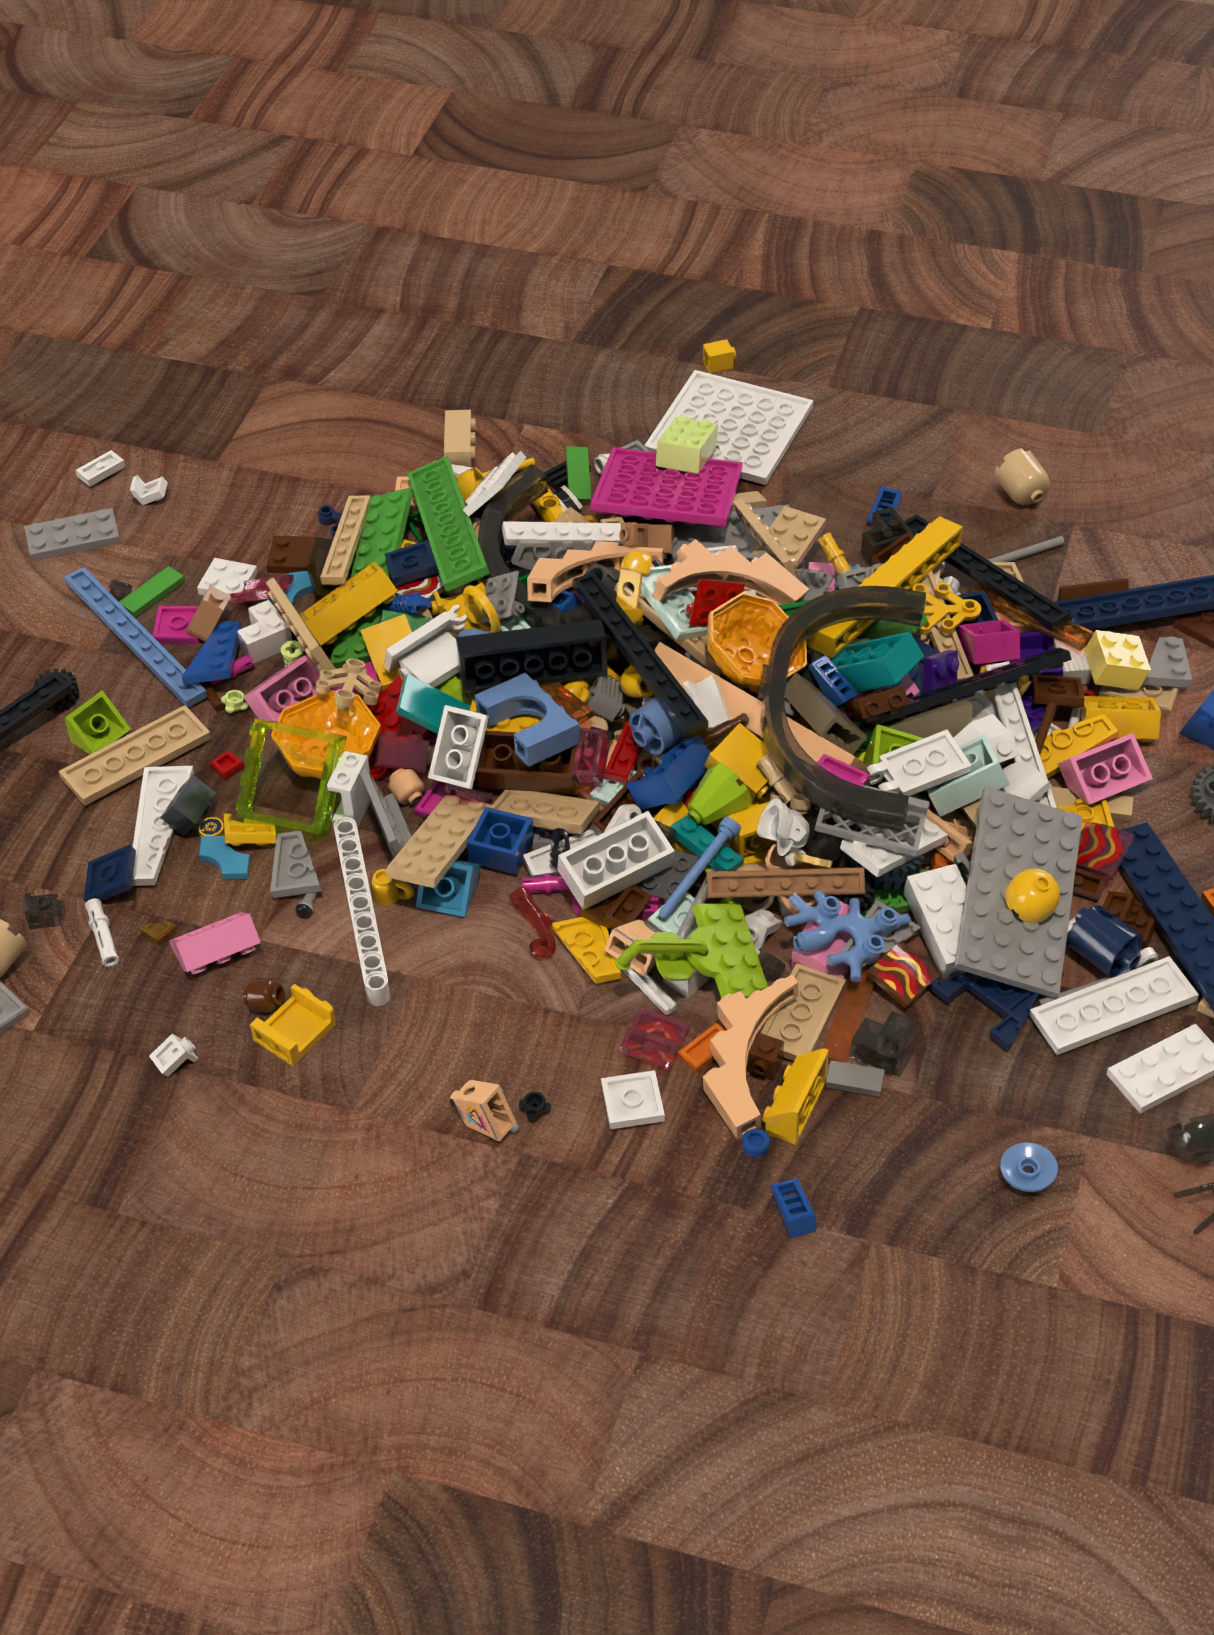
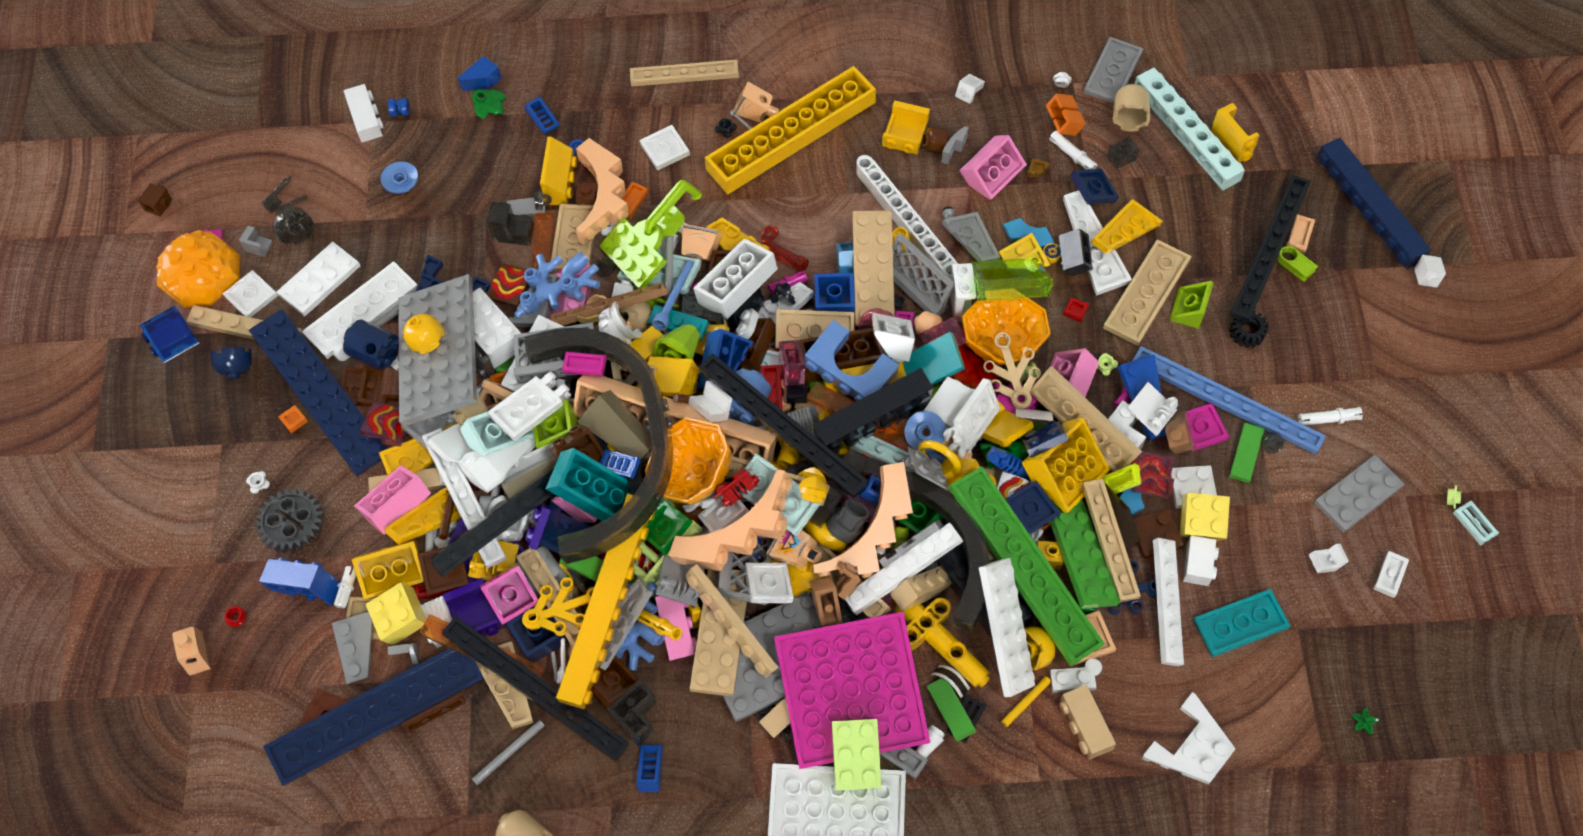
camera: 160 degrees right, 15 degrees up
(35, 593) = (1339, 415): none -> white pin
(47, 1026) = (1062, 80): none -> white plate
(79, 970) = (1065, 108): none -> orange piece
(99, 826) = (1126, 226): none -> yellow wing
(215, 390) = (1364, 721): none -> green plant
(223, 627) = (1153, 408): none -> white hinge
(234, 984) = (955, 143): none -> light grey slope
(239, 539) = (1204, 516): none -> light yellow brick
(265, 474) = (1241, 623): none -> teal tile
(269, 518) = (1200, 560): none -> white brick
(297, 587) = (1123, 478): none -> neon yellow tile
(322, 495) = (1168, 602): none -> white plate
(351, 642) = (1034, 414): none -> white sticker
(358, 604) = (1045, 438): none -> dark blue plate
(372, 403) = (1202, 751): none -> white wing
(447, 1059) = (790, 130): none -> yellow brick
(558, 1211) = (684, 73): none -> tan tile
(654, 1038) = (659, 188): clear pink slope -> none
(836, 1061) = (538, 196): none -> clear smoke tile
(869, 1253) = (489, 104): none -> green plate
(870, 1293) = (480, 75): none -> blue slope
(1008, 1280) = (398, 107): none -> blue wheel
(1067, 1288) = (364, 112): none -> white brick
(1173, 719) = (345, 588): none -> white axle

